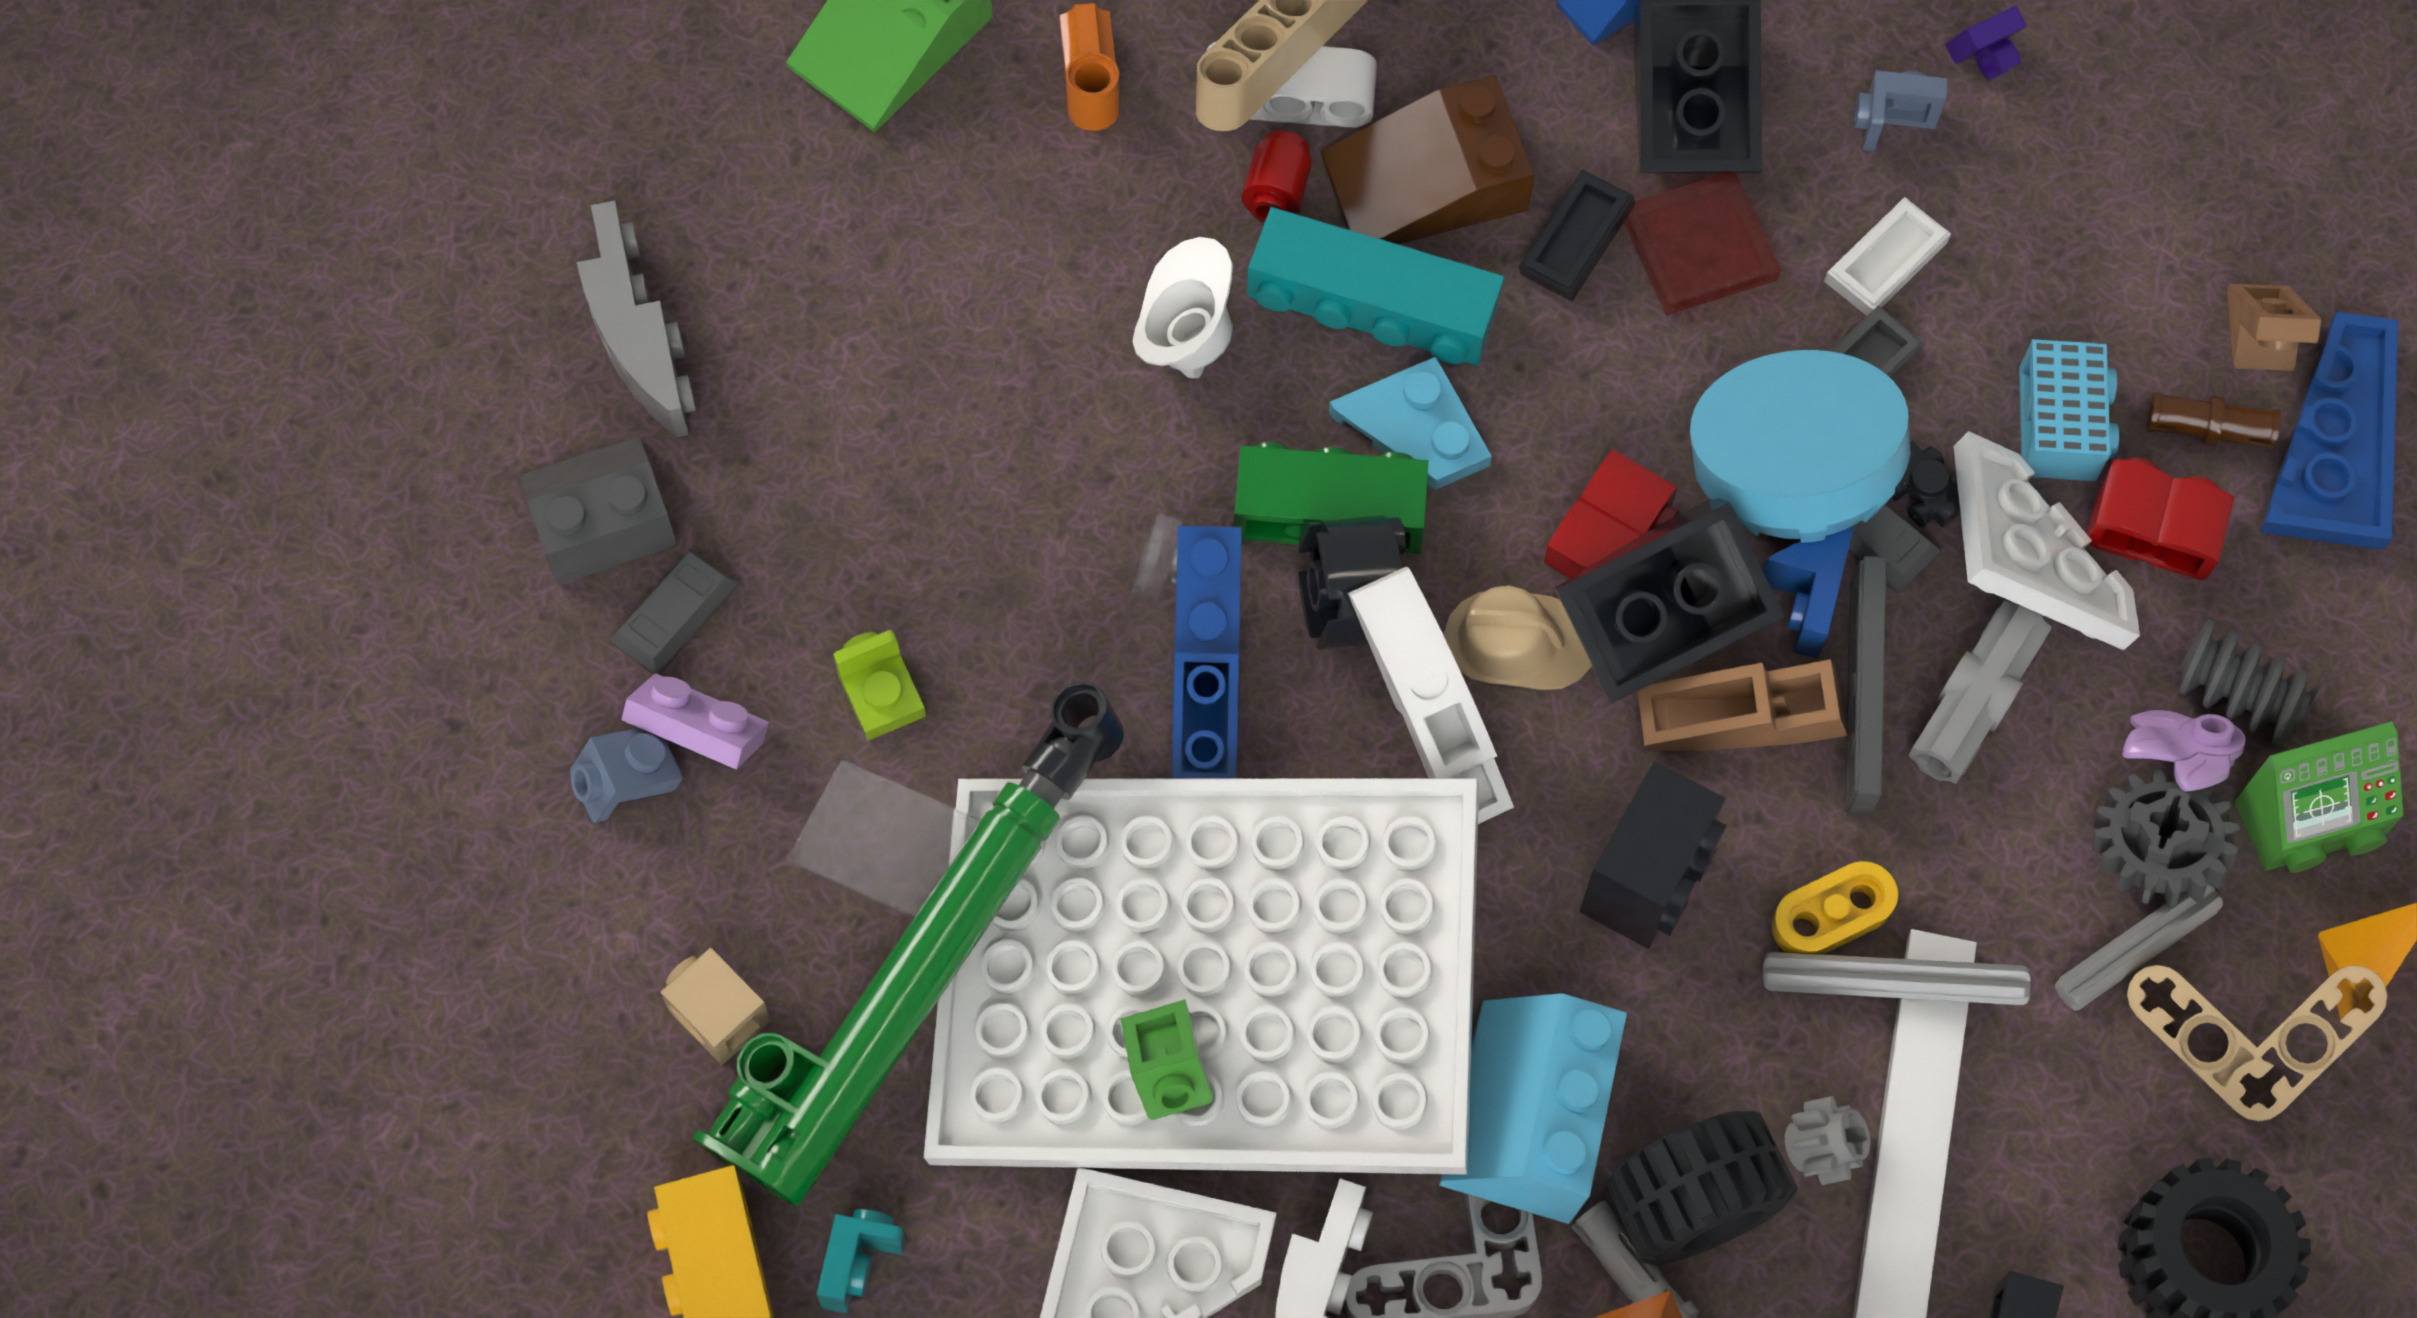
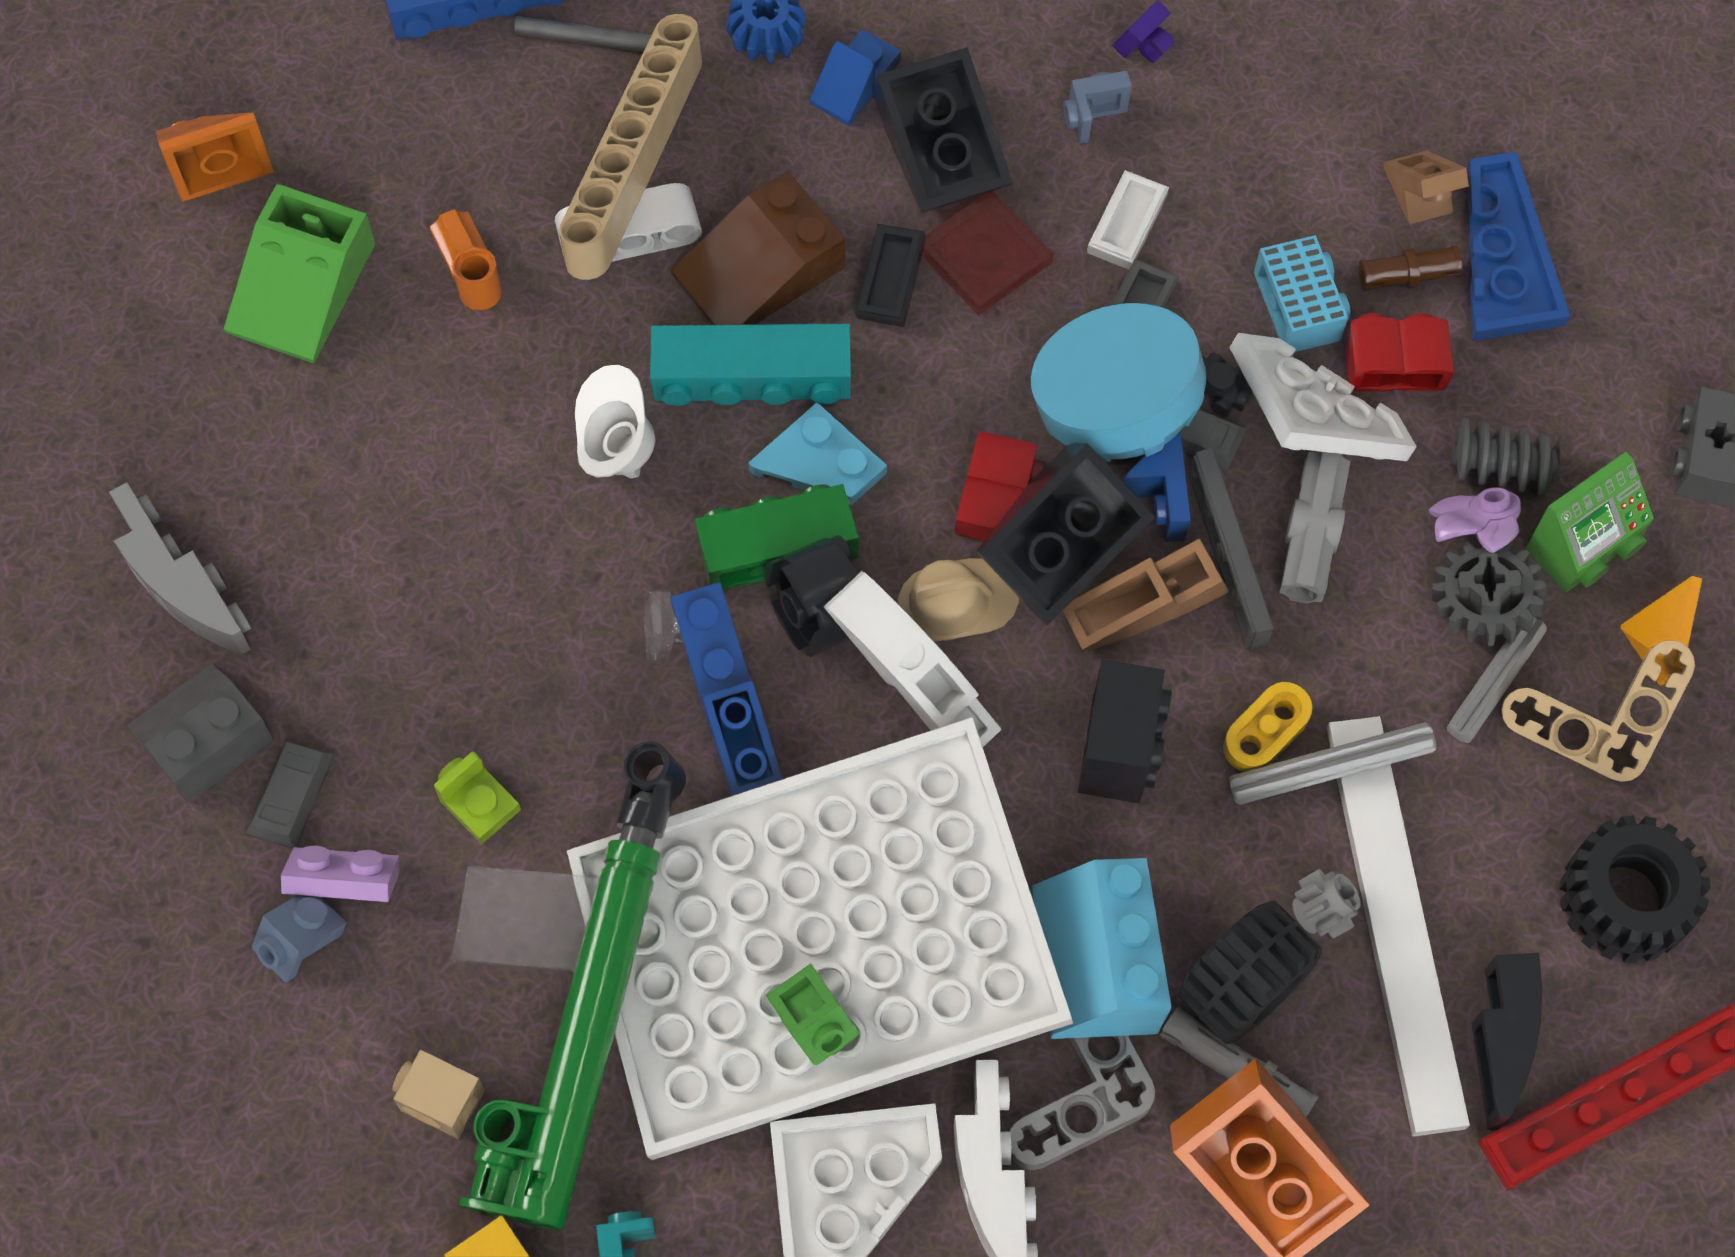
camera: 20 degrees left, 0 degrees up
(1277, 174) = (644, 299): red brick -> none

